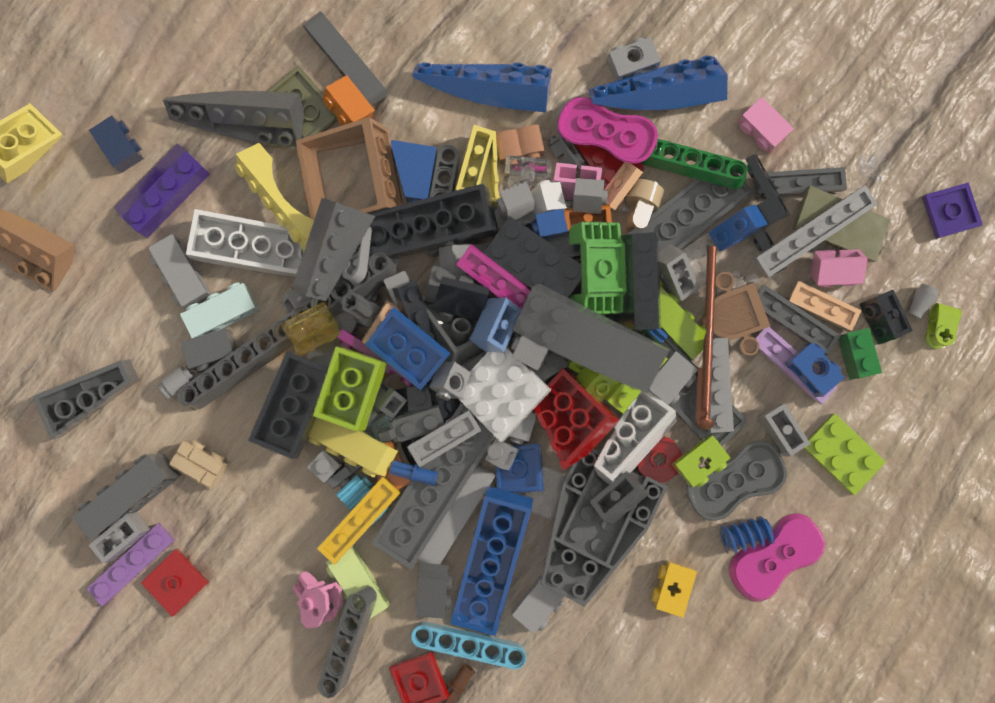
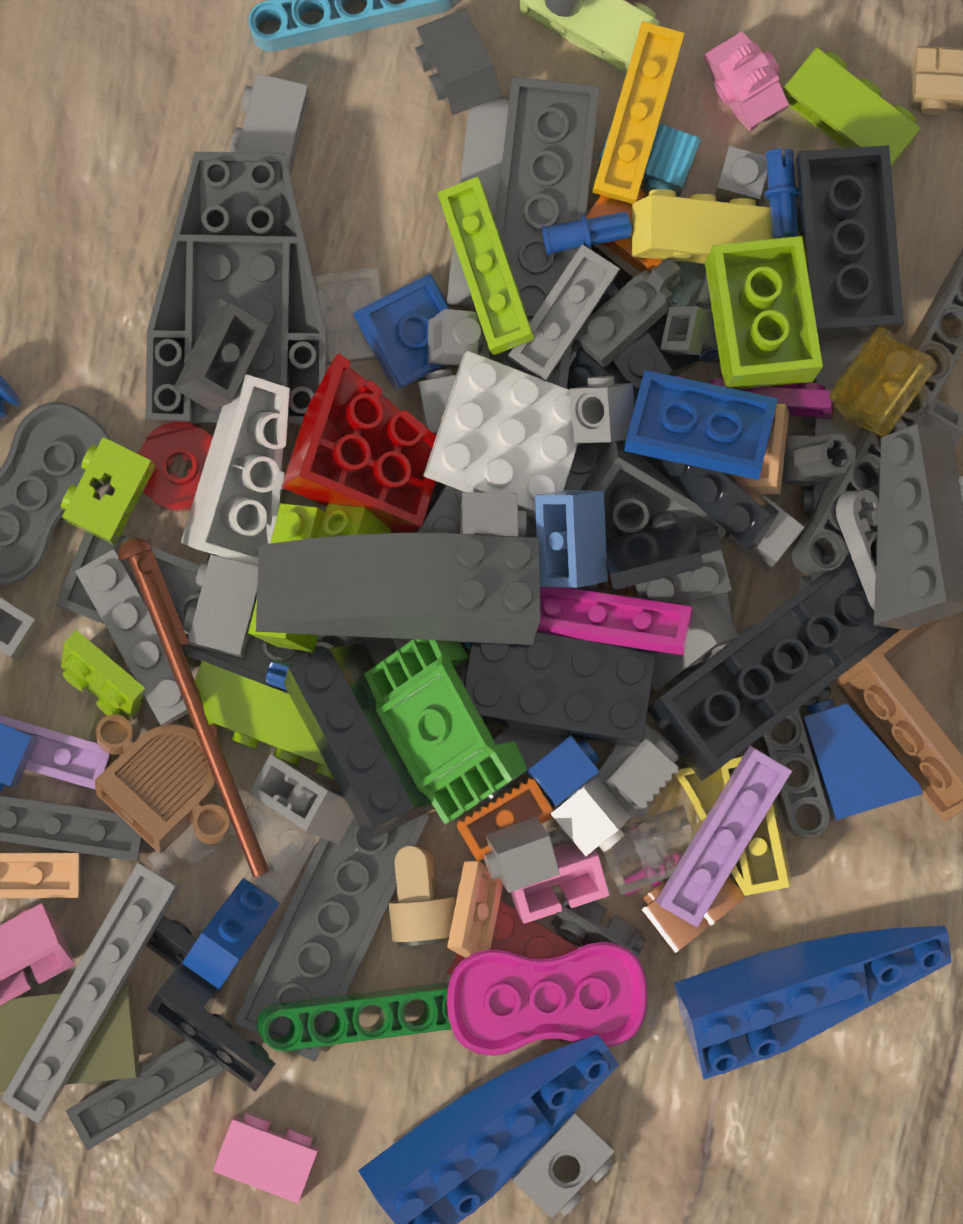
camera: 155 degrees right, 0 degrees up
(257, 475) = (848, 107): none -> lime brick
(299, 513) = (746, 80): none -> bright pink hinge
(311, 445) = (782, 193): none -> blue axle
(343, 476) = (705, 171): dark grey plate -> none
(470, 480) = (485, 266): none -> lime plate
(492, 159) = (723, 836): none -> lavender plate
(492, 560) = (384, 160): blue slope -> none
(676, 600) = (41, 241): yellow brick -> none
(749, 382) = (93, 670): none -> lime plate

